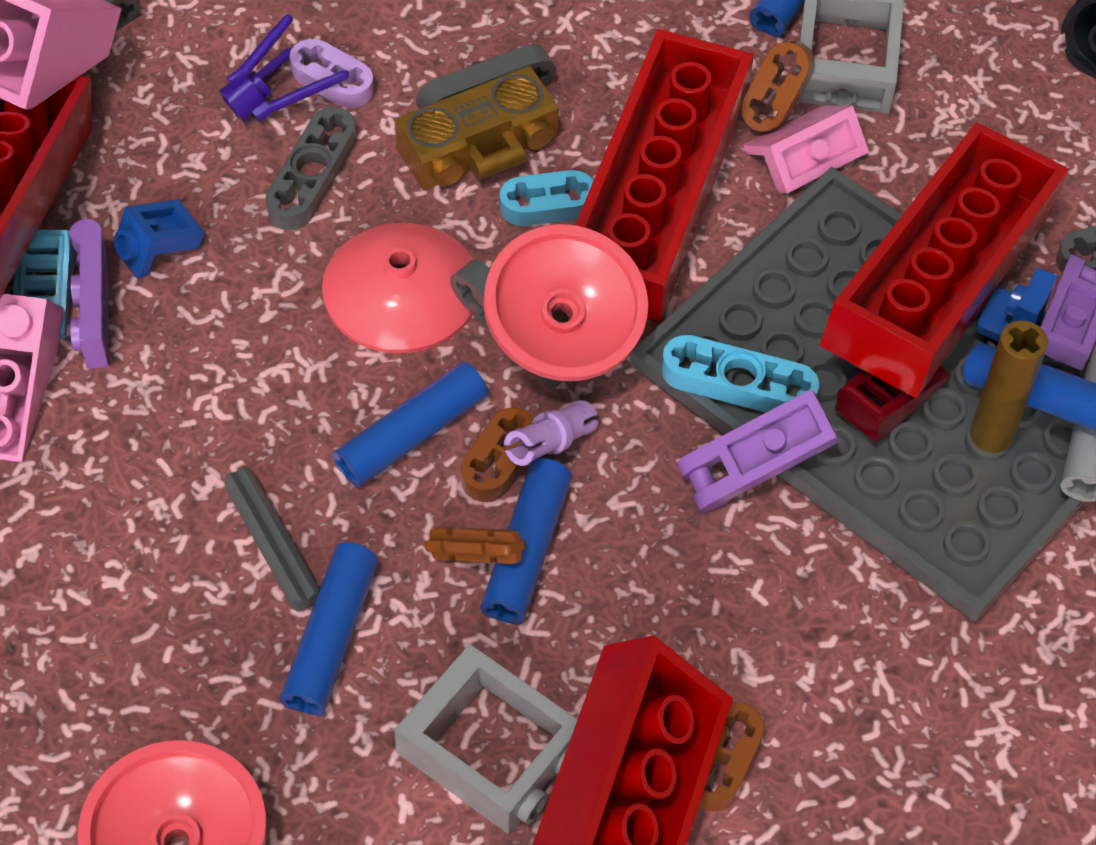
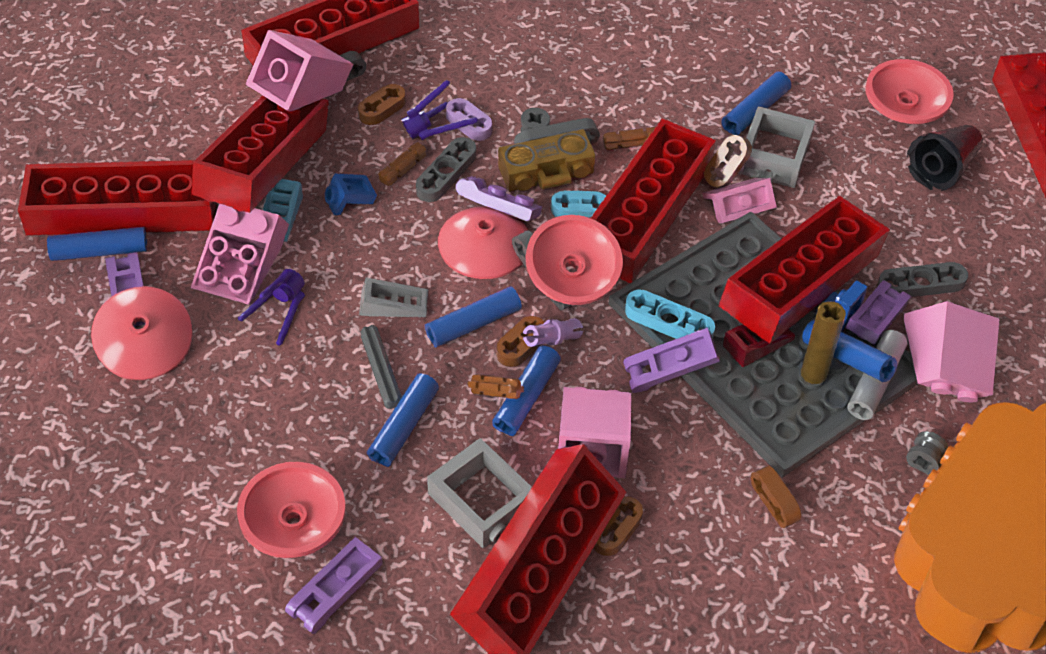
camera: 10 degrees right, 5 degrees down
(78, 425) = (284, 288): none -> dark purple plant
(90, 294) = (305, 219): medium lavender plate -> none
(174, 65) = (381, 104): none -> dark orange beam
(235, 169) = (402, 164): none -> dark orange axle
(250, 432) = (392, 308): none -> light grey slope
(408, 208) = (497, 198): none -> hinge
(443, 58) = (534, 118): none -> dark grey wheel
(604, 67) = (626, 138): none -> dark orange axle
(660, 585) = (600, 423): none -> bright pink slope
(975, 659) = (776, 496): none -> dark orange beam

